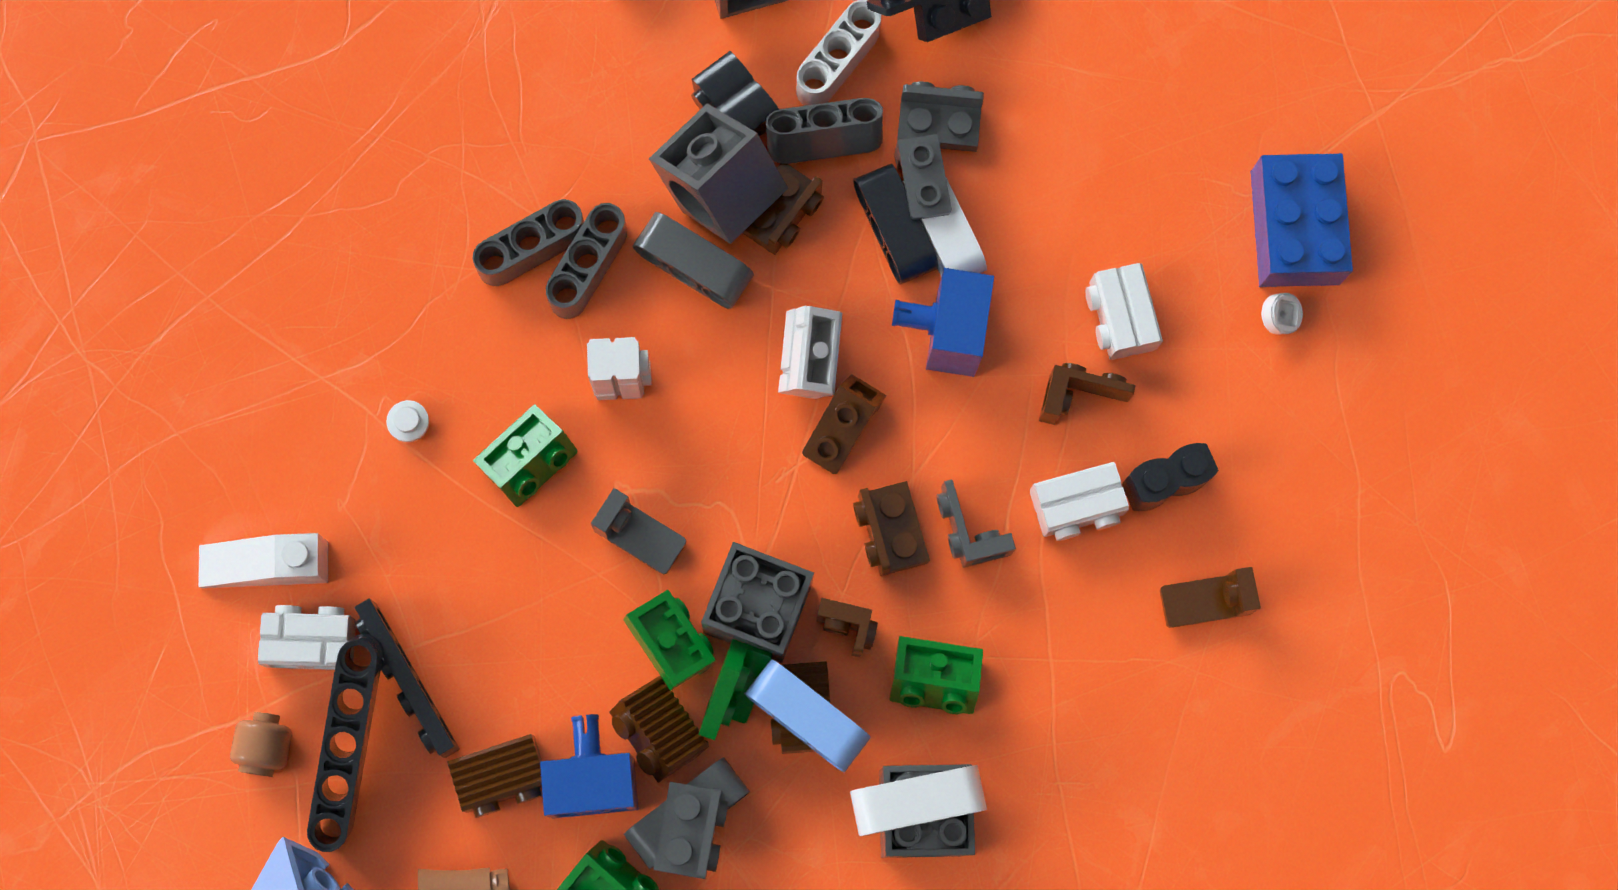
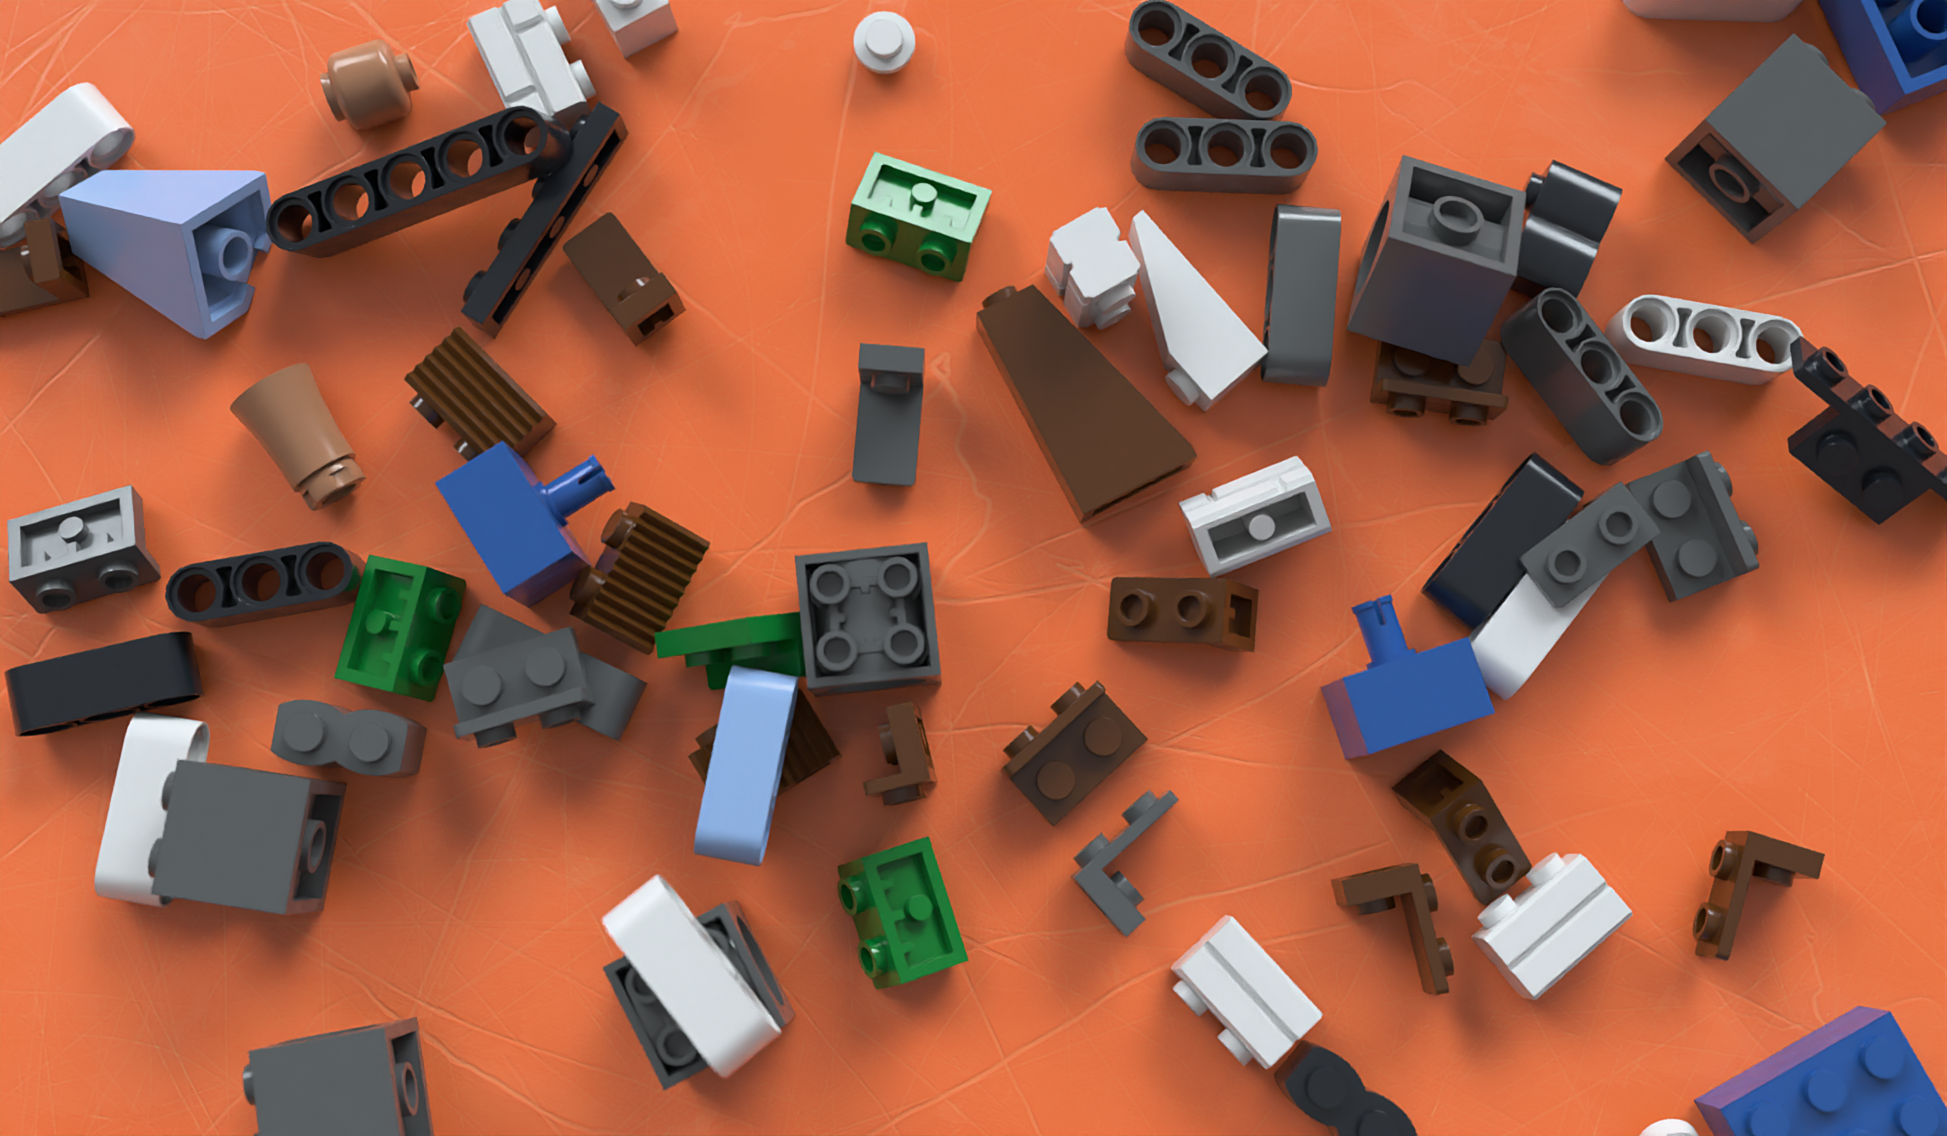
camera: 65 degrees right, 5 degrees up
(468, 649) = (624, 278): none -> reddish brown bracket
(670, 639) = (764, 530): green bracket -> none
(679, 330) = (1194, 328): none -> white slope
(690, 420) = (1081, 410): none -> reddish brown slope
(1044, 327) = (1466, 823): none -> reddish brown bracket
(1140, 195) = (1732, 868): none -> reddish brown bracket

